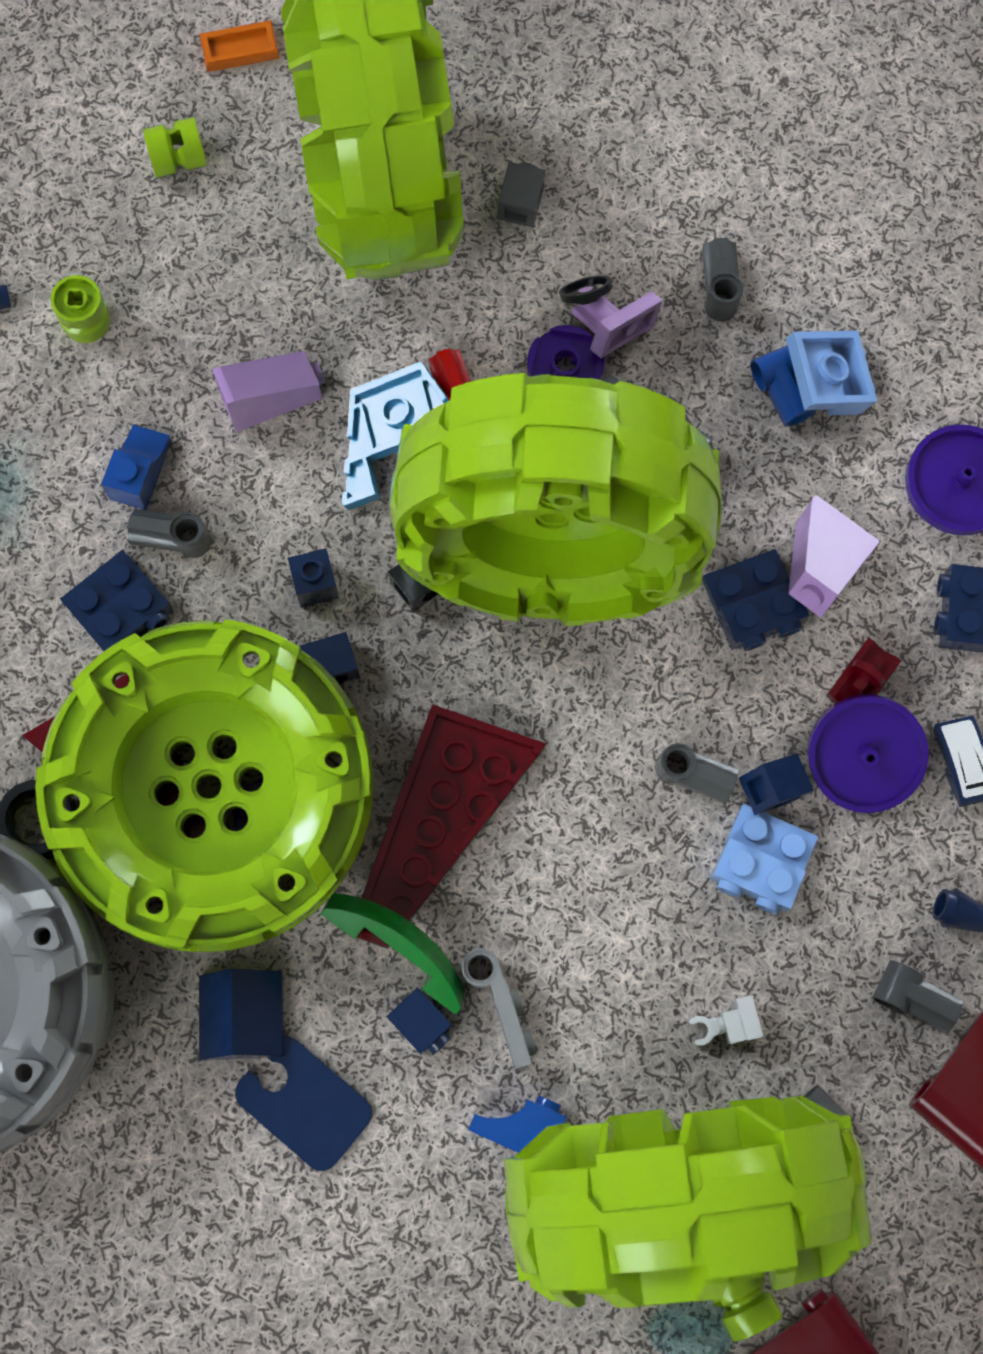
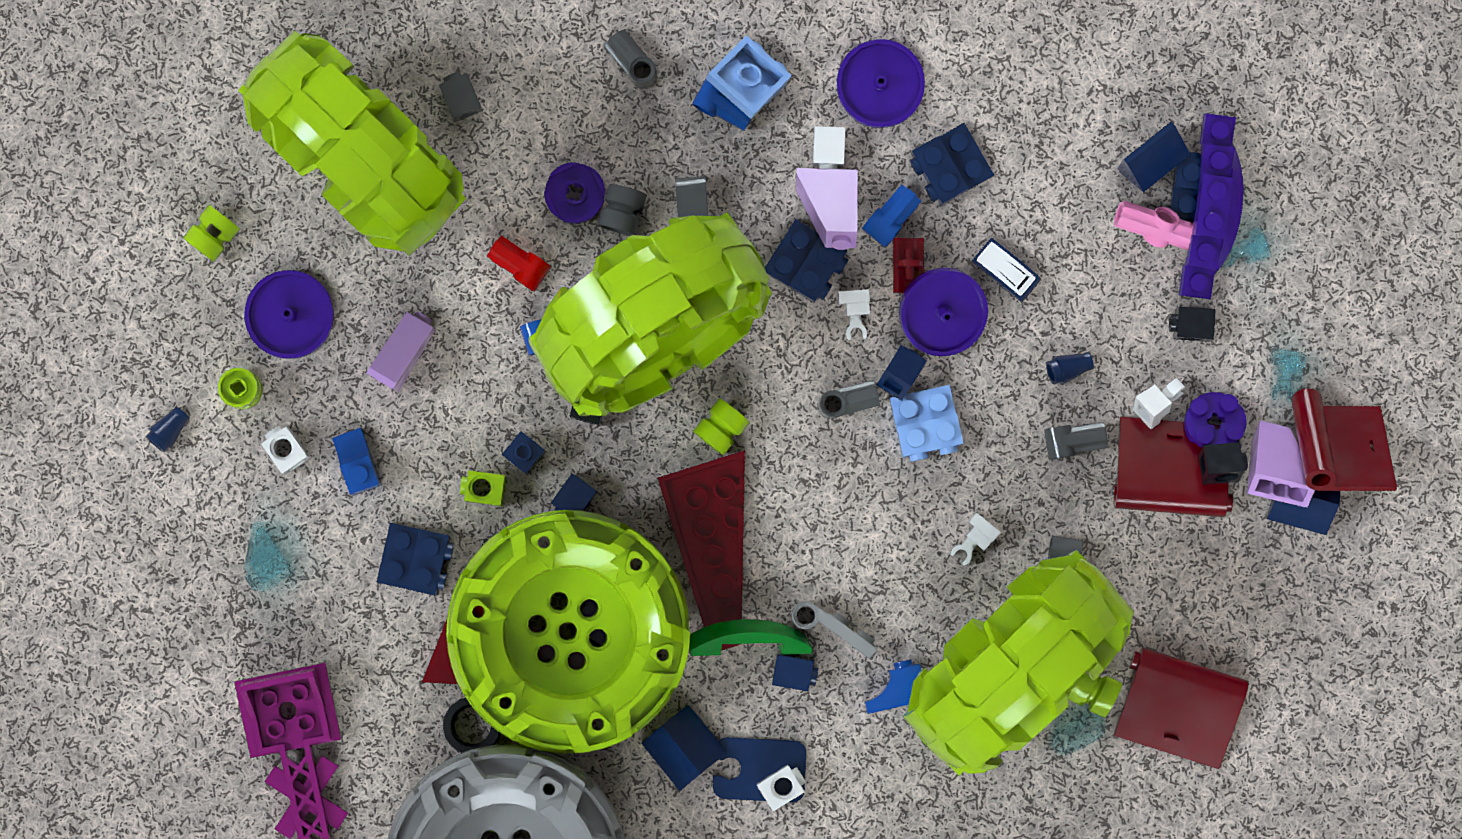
camera: 35 degrees left, 10 degrees up
(78, 416) = (294, 459): none -> white brick
(166, 532) = (408, 492): dark grey piece -> none
(188, 280) = (289, 314): none -> dark purple piece
(239, 46) = (192, 126): orange tile -> none
(251, 599) = (496, 493): none -> lime brick
(292, 1140) = (774, 799): none -> white brick
(376, 421) = (494, 310): wing -> none
(540, 700) = (721, 426): none -> lime wheel
(611, 326) = (576, 142): lavender piece -> none
(776, 683) = (856, 304): none -> white piece
(865, 498) = (828, 147): none -> white brick
(881, 617) = (887, 221): none -> blue piece

